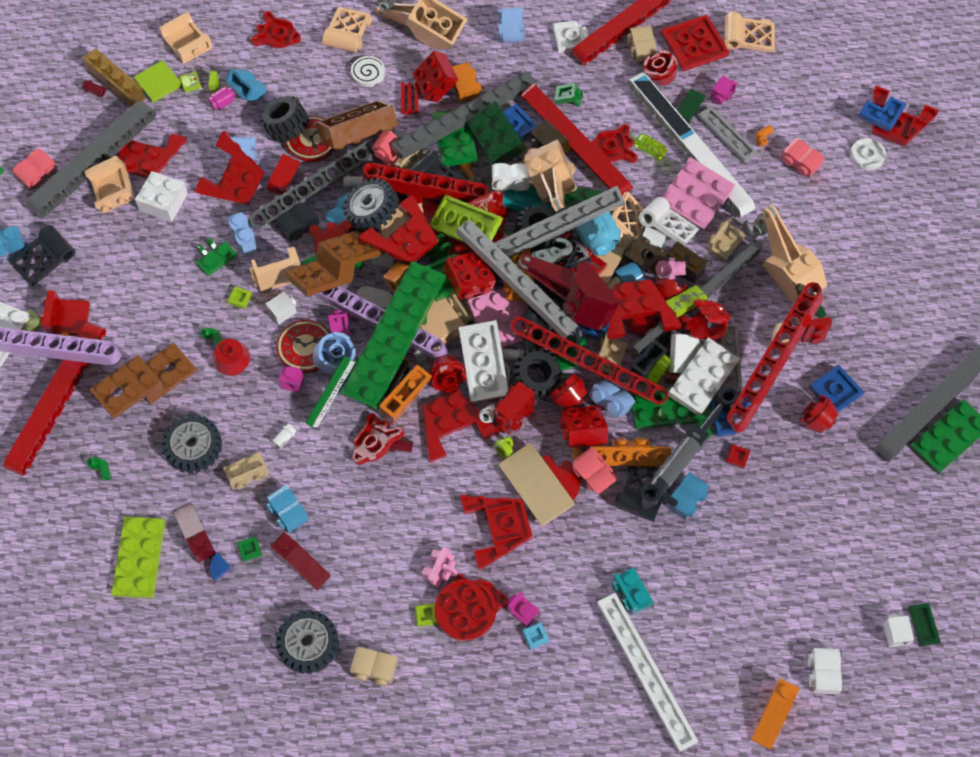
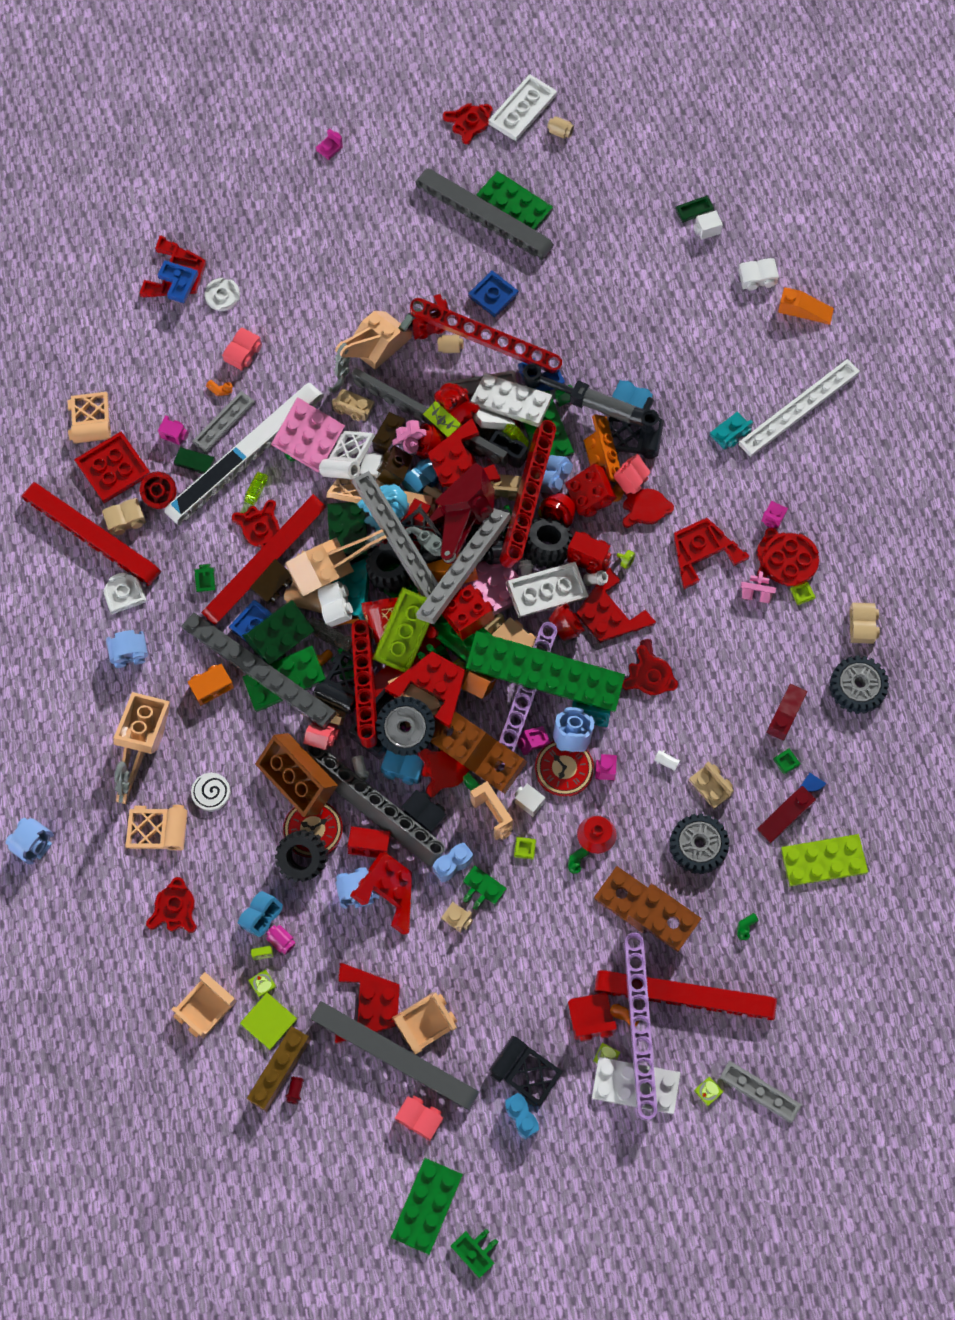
camera: 100 degrees left, 5 degrees up
(161, 196) = (425, 962): white brick -> none
(194, 232) = (457, 917): none -> tan bracket
(287, 508) = (740, 736): dark azure brick -> none
(330, 392) = (617, 720): green tile -> none
(376, 296) = (493, 714): white tile -> none
(404, 394) = (599, 653): orange slope -> none
(409, 86) = (236, 739): red tile -> none
(435, 76) = (215, 710): red brick -> none
(535, 635) = (794, 500): medium azure tile -> none
(536, 484) = (656, 523): tan tile -> none
(738, 456) = (579, 366): red tile -> none
(819, 415) = (525, 302): red cone -> none

